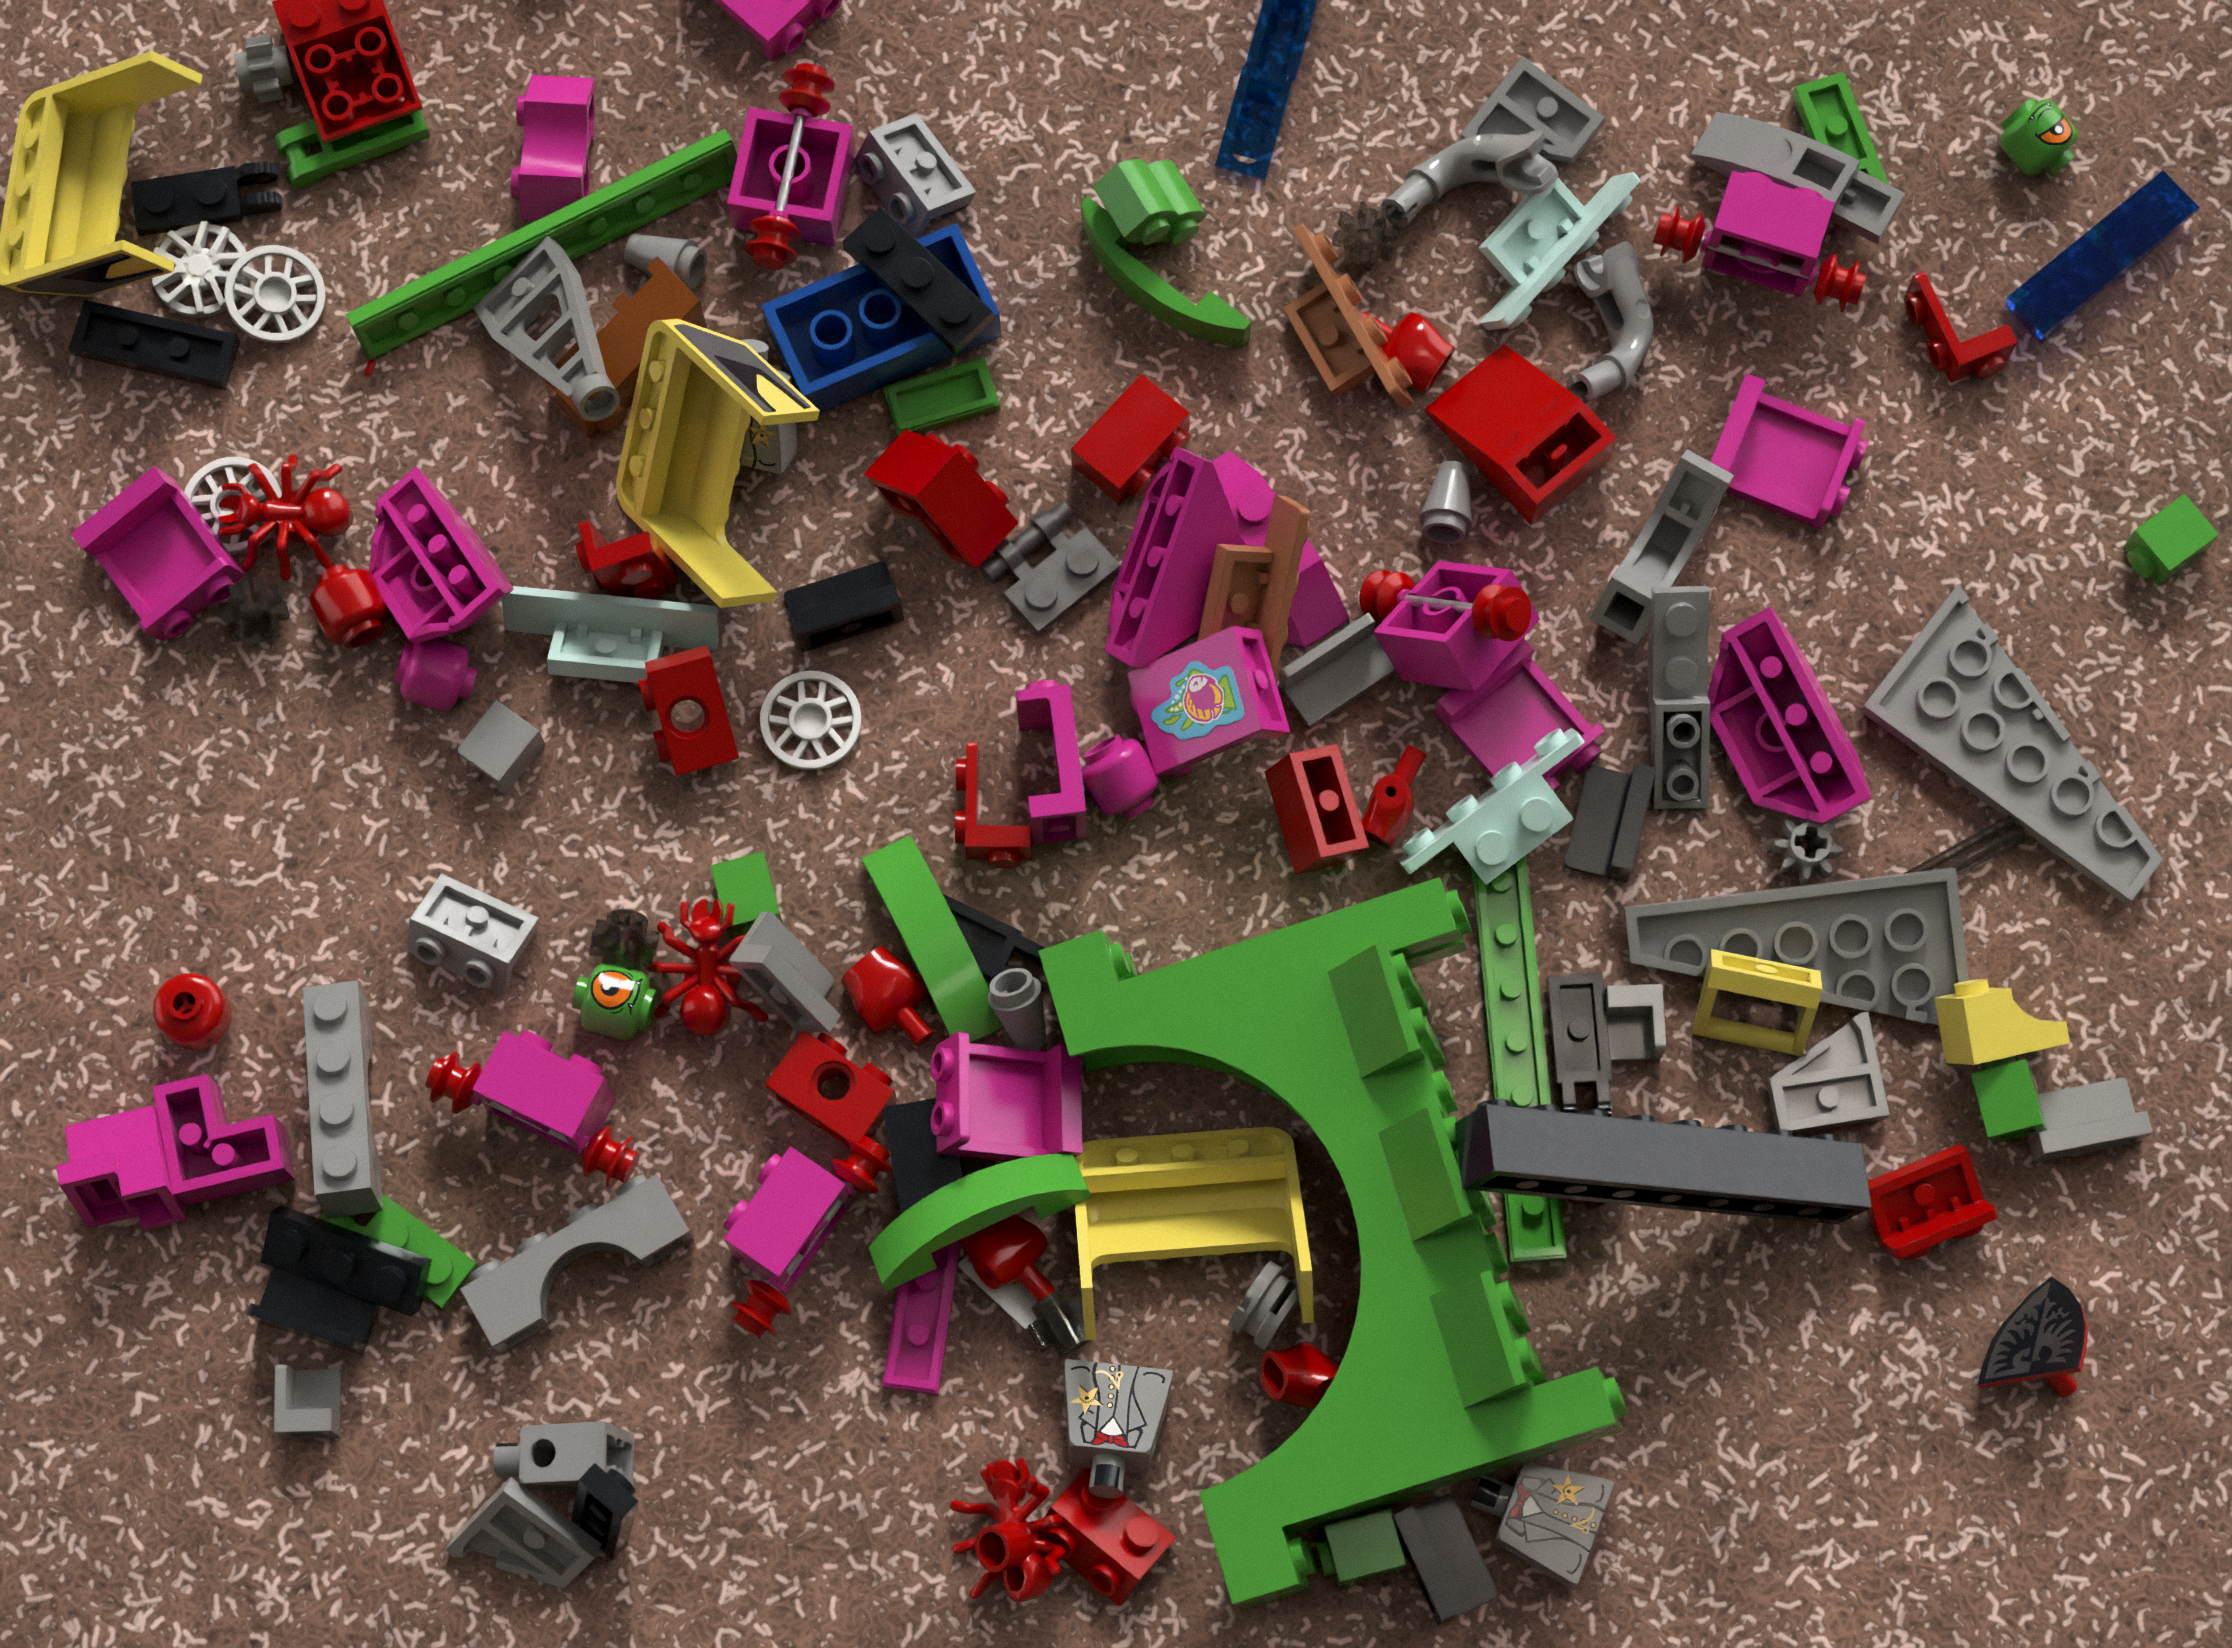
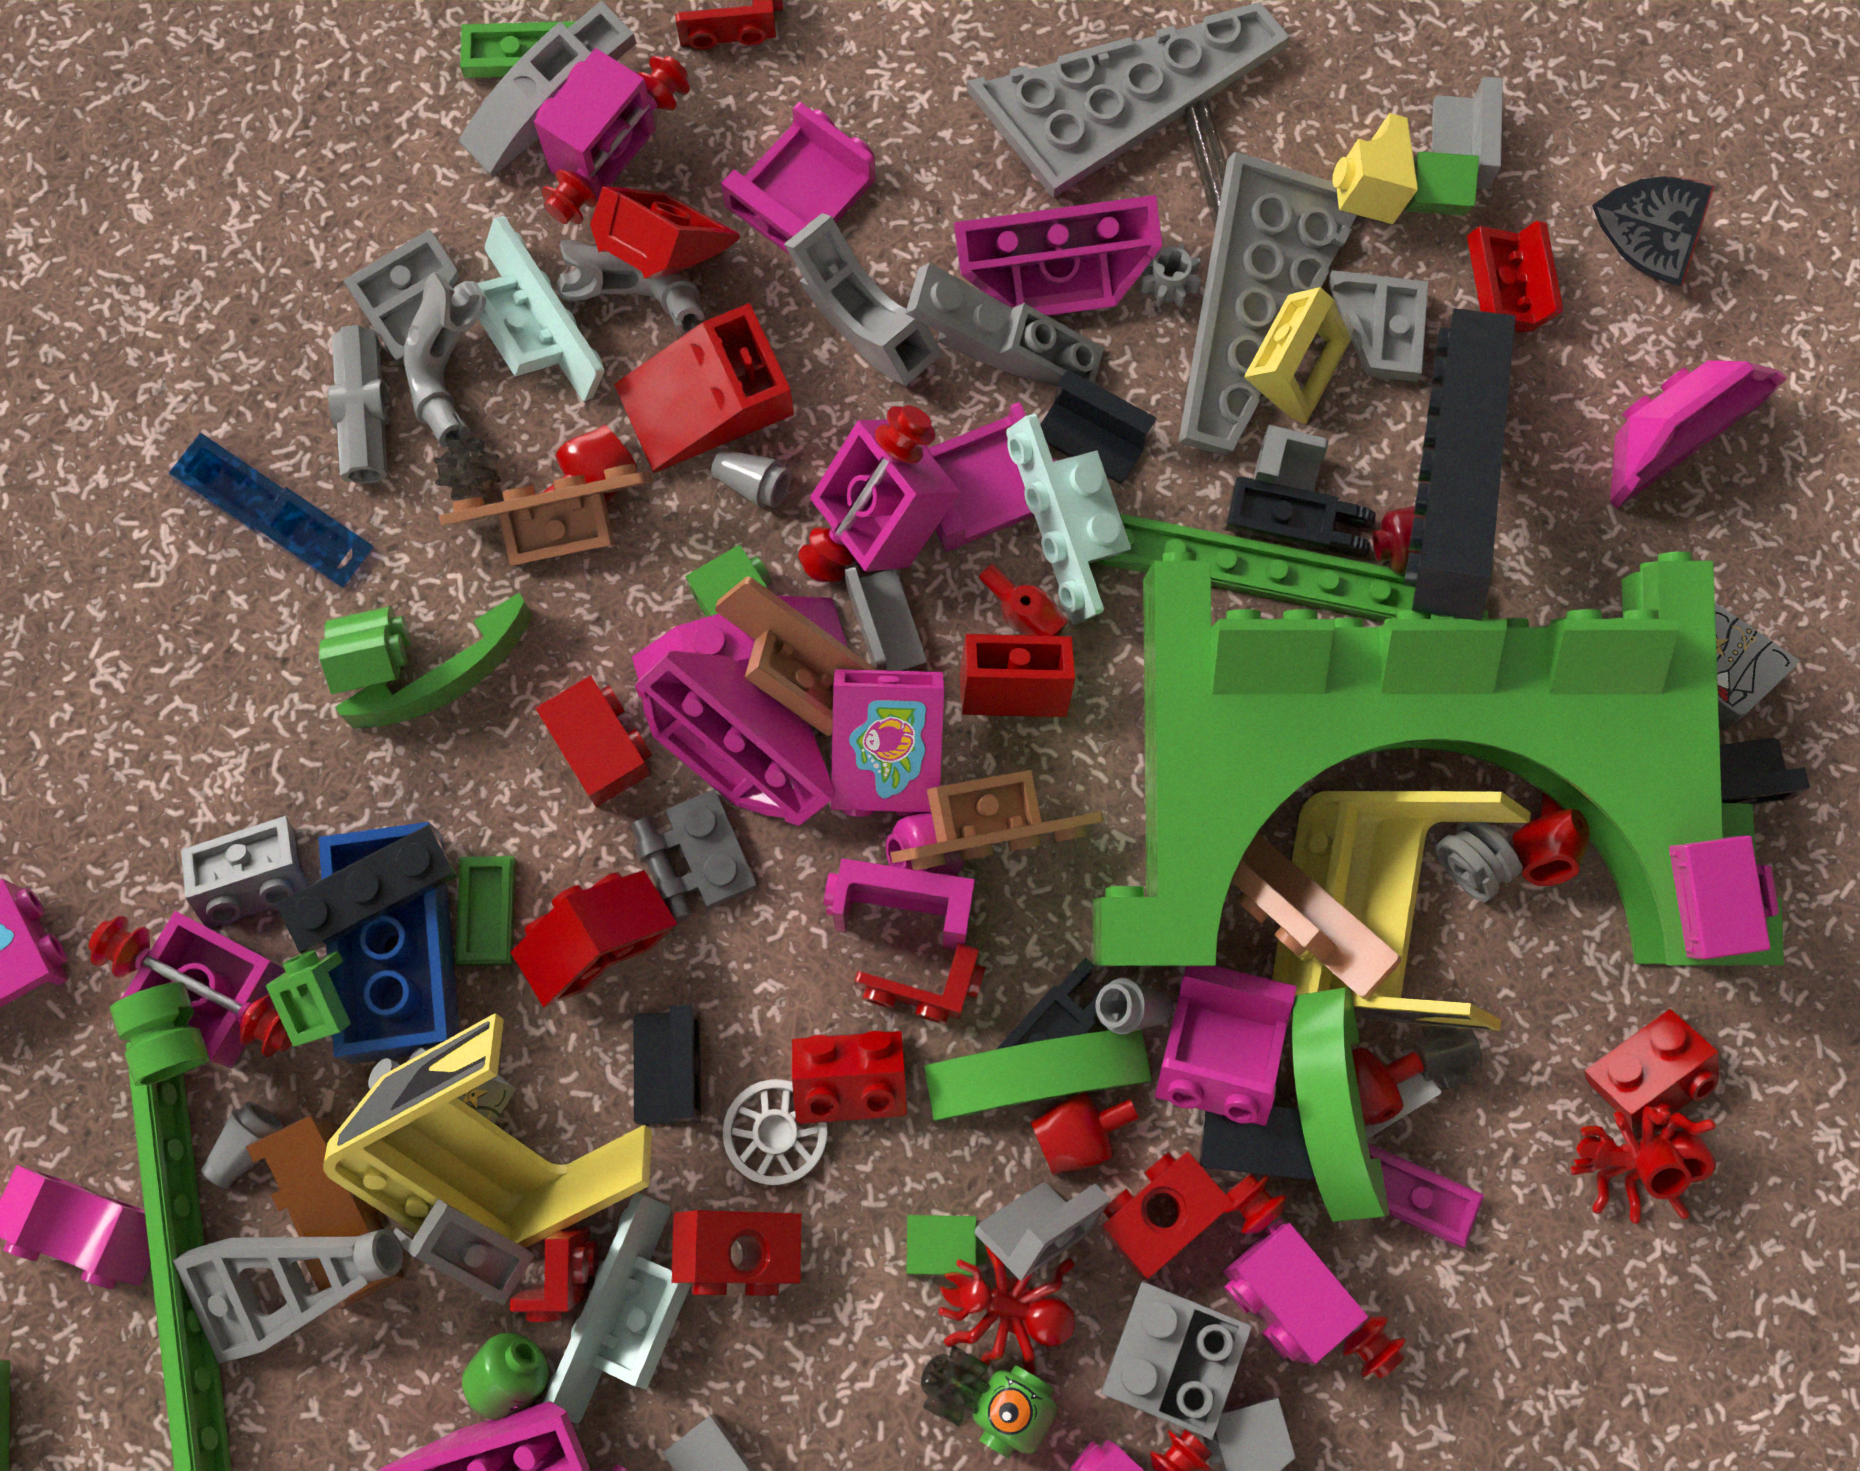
camera: 75 degrees left, 0 degrees up
(526, 547) = (505, 1376): none -> bright green head
(622, 476) = (468, 1251): none -> light grey panel
(700, 1126) = (1176, 1360): none -> light grey slope
(734, 149) = (159, 1033): none -> bright green wheel
(803, 262) = (308, 998): none -> bright green bracket
(879, 767) = (848, 1077): none -> red bracket
(1113, 1420) = (1556, 1033): light grey torso -> none
(1154, 1137) = (1311, 918): none -> nougat bracket
(1163, 816) = (986, 812): none -> nougat bracket
(1275, 1514) = (1723, 897): none -> dark pink piece
(1333, 516) = (721, 575): none -> bright green brick
(1401, 116) = (358, 405): none -> light grey piece
(1669, 328) = (656, 231): none -> red slope
(1819, 1419) = (1684, 419): none -> dark pink wedge

